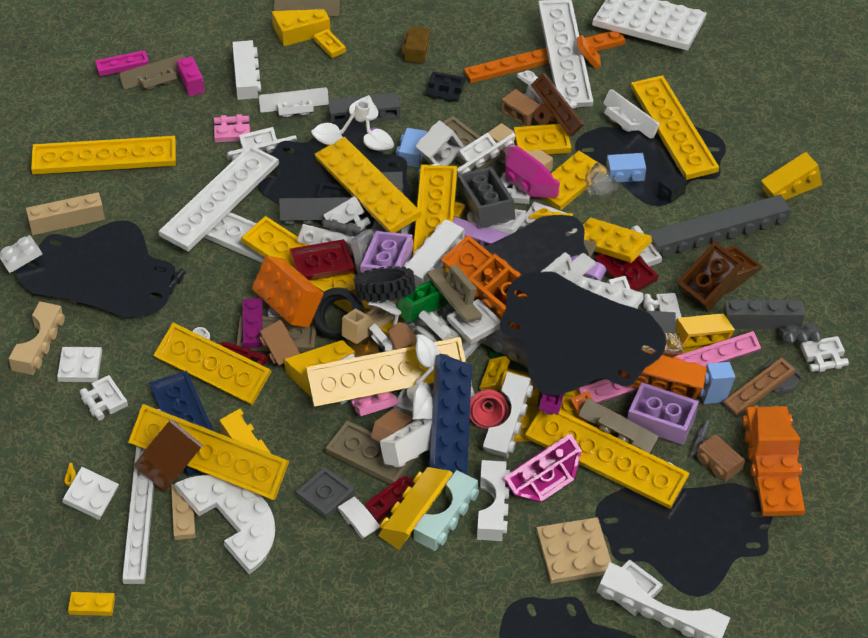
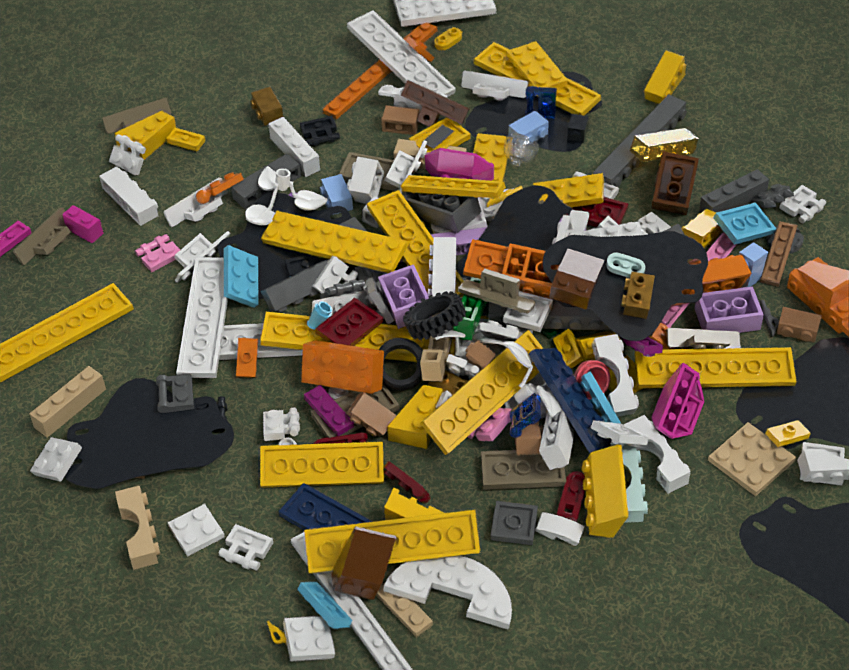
camera: 30 degrees left, 0 degrees up
(121, 474) = (324, 605): none -> medium azure plate
(150, 251) = (182, 393): none -> dark grey plate
(208, 314) = (278, 424): none -> white plate
(226, 247) = (247, 357): none -> orange plate
(267, 413) = (406, 482): none -> dark red plate
(269, 34) = (125, 159): none -> white plate
(273, 178) = (240, 276): none -> medium azure plate
(299, 97) = (217, 187): none -> orange plate
(300, 238) = (320, 313): none -> medium azure cone
(395, 407) = (524, 414): none -> clear blue plate
(410, 90) = (294, 145): none -> white brick
(464, 464) = (619, 433): none -> white plate
(476, 429) = (598, 398): none -> medium azure plate
(500, 184) = (453, 186): none -> yellow plate
(527, 311) = (576, 278): none -> reddish brown slope
(540, 137) = (438, 136): none -> dark grey sticker
(570, 352) = (638, 295): none -> pearl gold brick
(580, 323) = (625, 263): none -> light aqua plate
(622, 545) = (787, 433): none -> yellow plate
(627, 55) = (448, 39): none -> yellow plate
(659, 147) = (546, 101): none -> clear blue plate
(679, 116) = (536, 66): none -> yellow plate
(734, 237) = (651, 145): none -> clear yellow brick
(744, 343) = (744, 223): none -> medium azure plate

